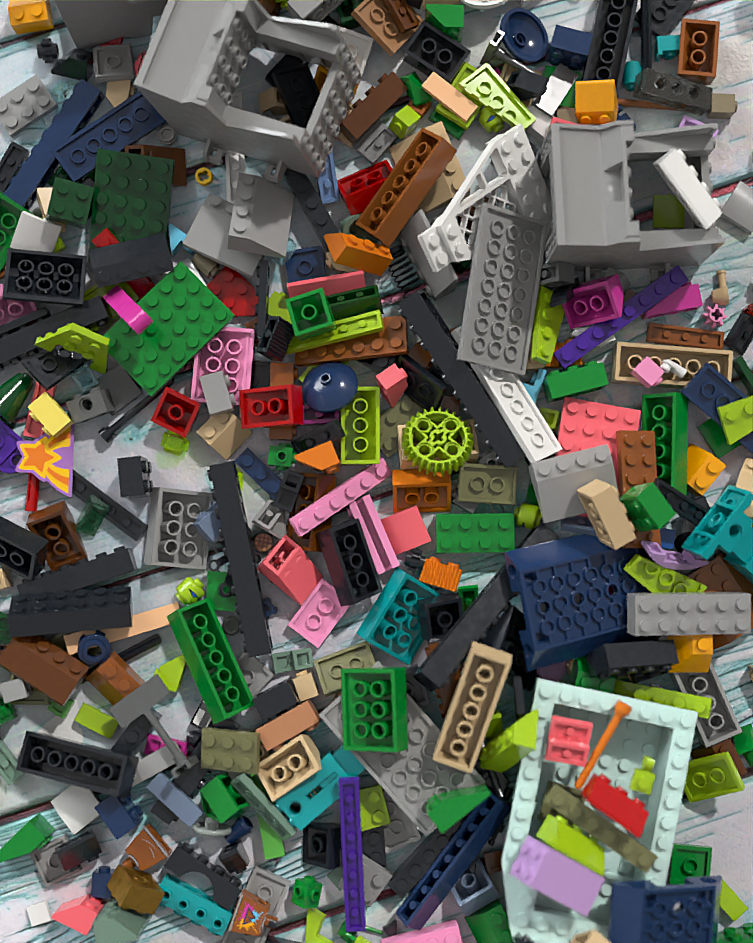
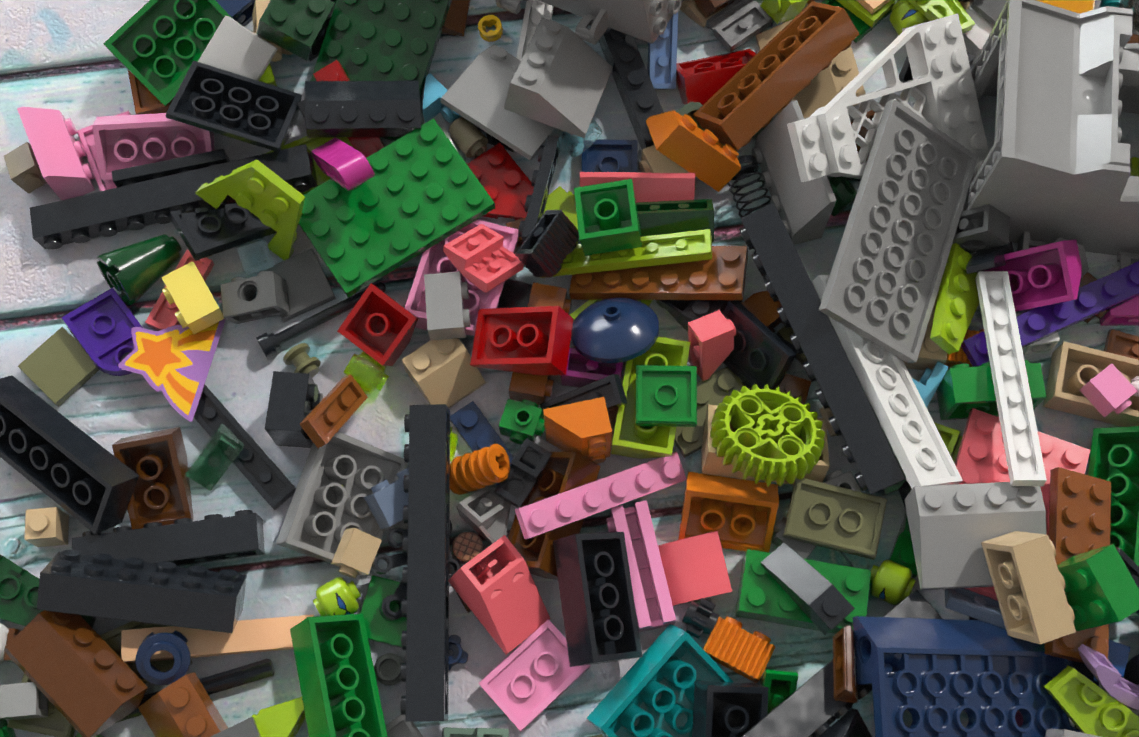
camera: 10 degrees right, 15 degrees down
(32, 493) = (136, 407): red pin -> none
(133, 444) = (300, 359): none -> olive wheel
(161, 475) = (333, 411): none -> dark orange plate
(195, 561) = (356, 552): none -> tan brick
(234, 356) = (482, 257): none -> coral slope
(260, 494) = (479, 469): none -> orange piece
(369, 426) = (666, 396): none -> green tile
(475, 533) = (807, 588): none -> slope
(503, 584) = (844, 666): none -> reddish brown slope
(583, 377) = (1010, 380): none -> white plate

